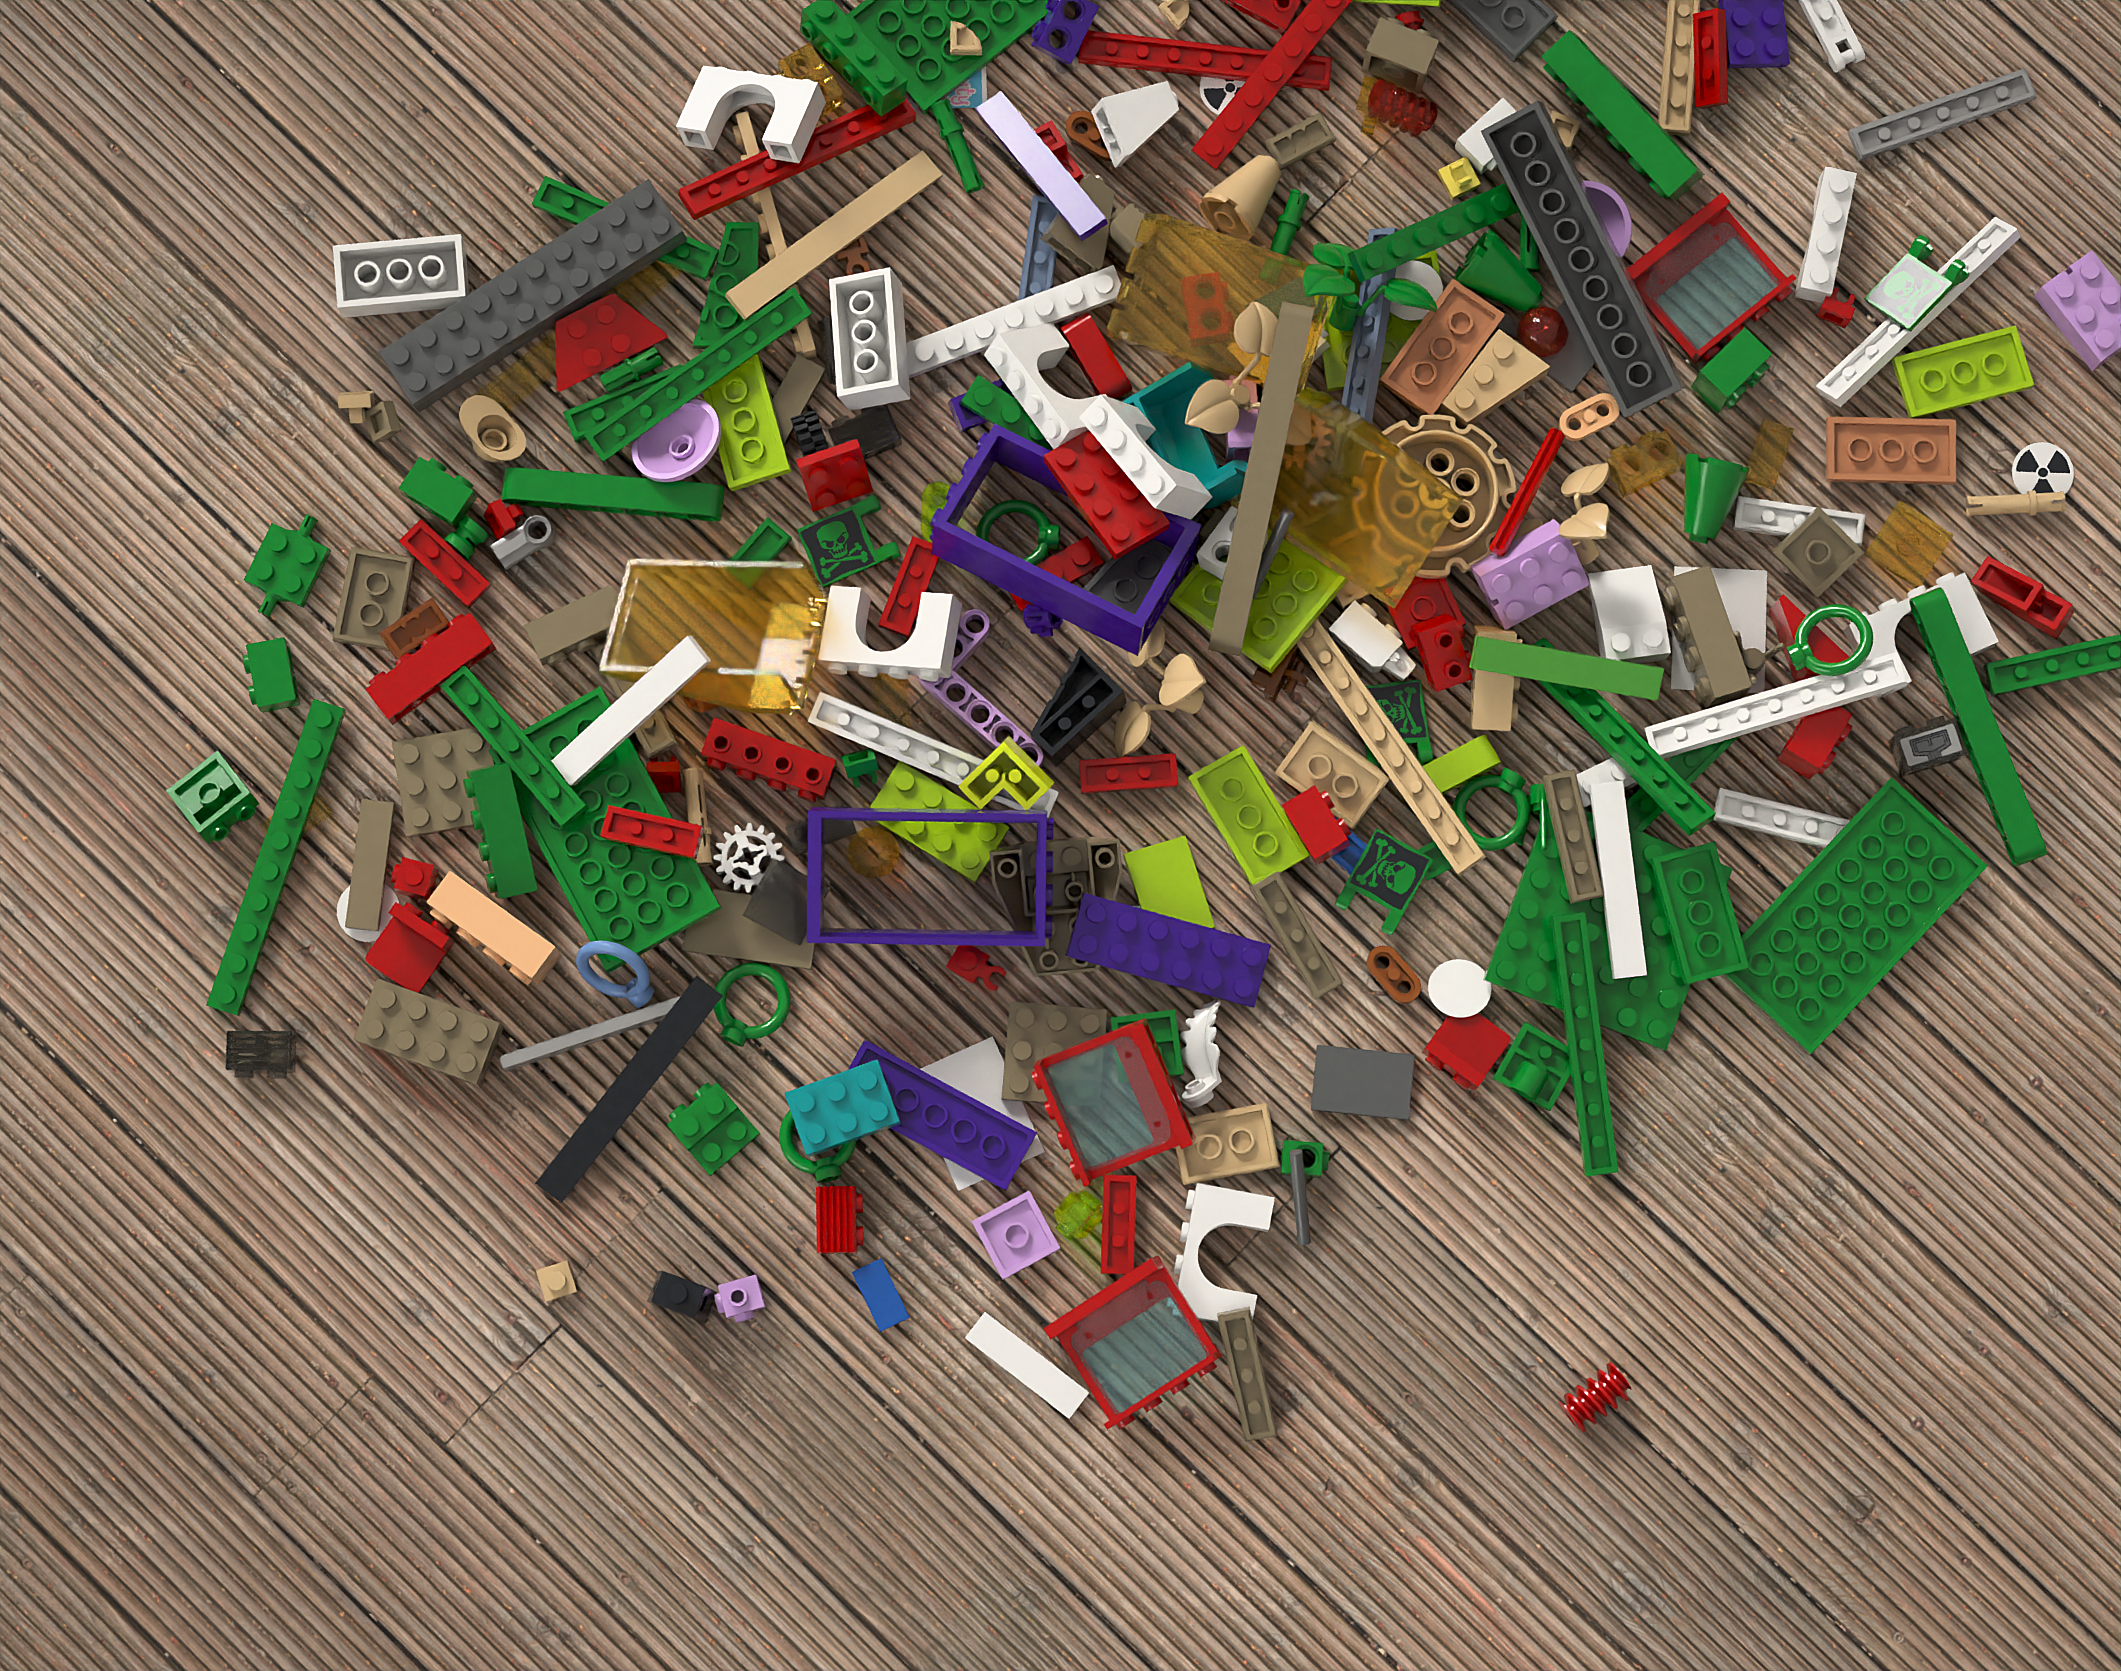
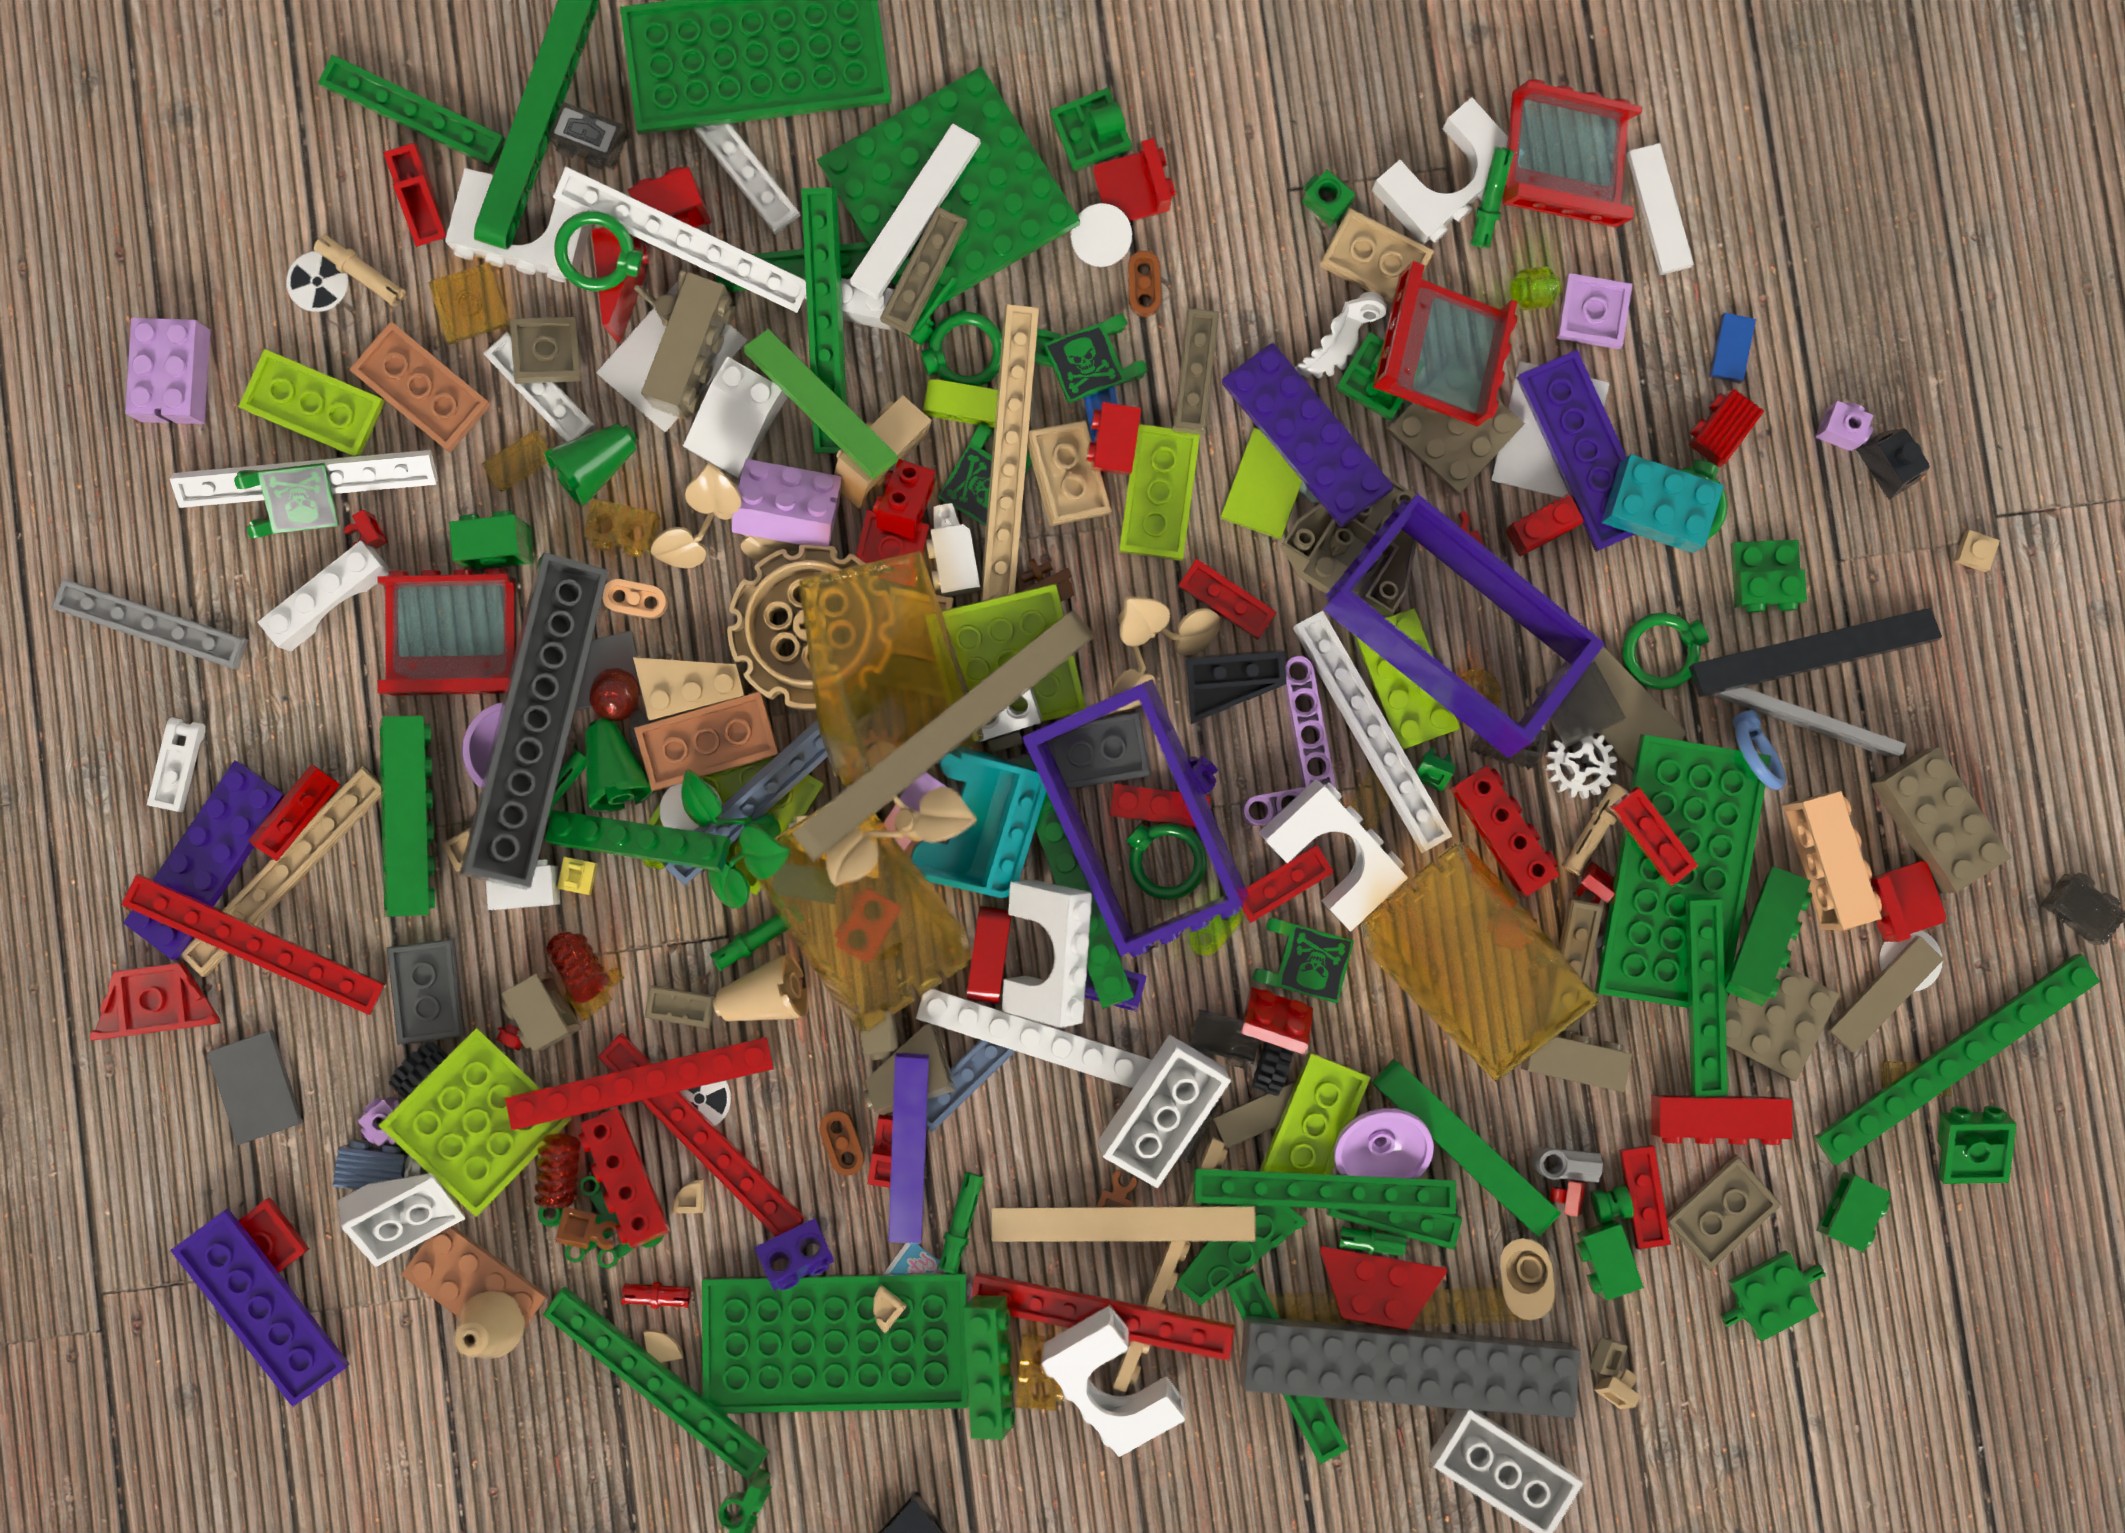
camera: 140 degrees left, 5 degrees up
(413, 628) = (1710, 1161): dark orange plate -> none
(414, 878) = (1861, 953): red brick -> none
(631, 710) = (1600, 945): white tile -> none
(764, 543) = (1380, 1009): green tile -> none
(922, 1025) = (1544, 525): none -> red brick
(1007, 769) = (1328, 664): neon yellow brick -> none
(1105, 494) = (1077, 824): red plate -> none
(1118, 1224) = (1508, 258): red plate -> none
(1123, 434) = (1034, 784): white arch -> none
(1133, 118) = (801, 1129): white slope -> none
(1164, 1245) = (1494, 189): none -> green pin
(1247, 1374) = (1500, 68): dark tan tile -> none
(1272, 547) = (970, 679): dark grey bar -> none
(1300, 1197) = (1355, 167): dark grey bar -> none
(1362, 1082) = (1233, 222): dark grey tile -> none
(1527, 492) = (734, 572): red axle -> none
(1584, 1044) = (1042, 111): green plate -> none
(1699, 913) = (873, 138): green plate -> none

